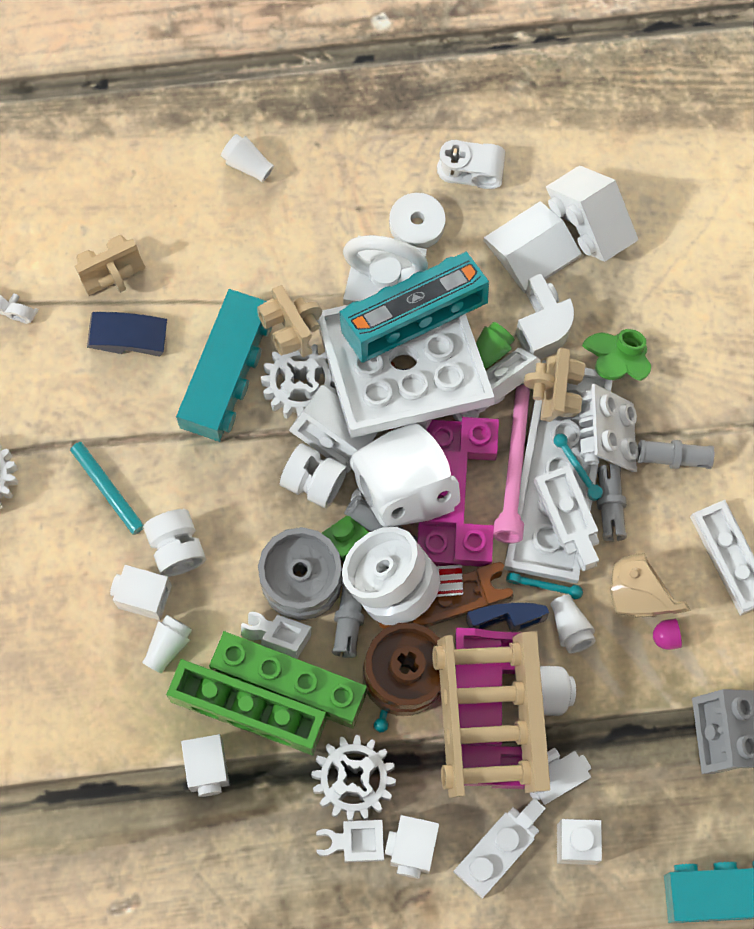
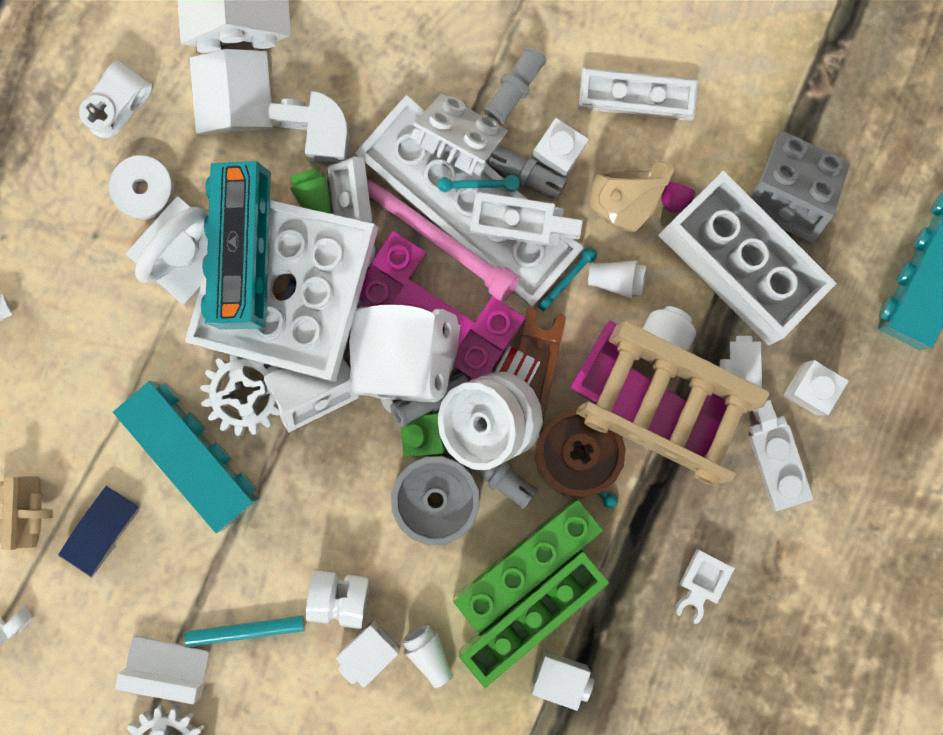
camera: 60 degrees left, 15 degrees up
(42, 443) = (164, 670): none -> white panel
(280, 635) = (482, 549): white plate -> none
(295, 334) = (165, 375): tan hips -> none
(314, 476) = (358, 425): white wheel -> none
(340, 790) = (651, 571): white gear -> none
(412, 846) = (736, 535): white brick -> none
(517, 615) = (584, 323): dark blue slope -> none
(550, 385) = (389, 161): tan hips -> none
(619, 354) = (391, 78): bright green plate -> none
(646, 515) = (560, 148): none -> white brick
(652, 719) = (747, 259): none -> white brick

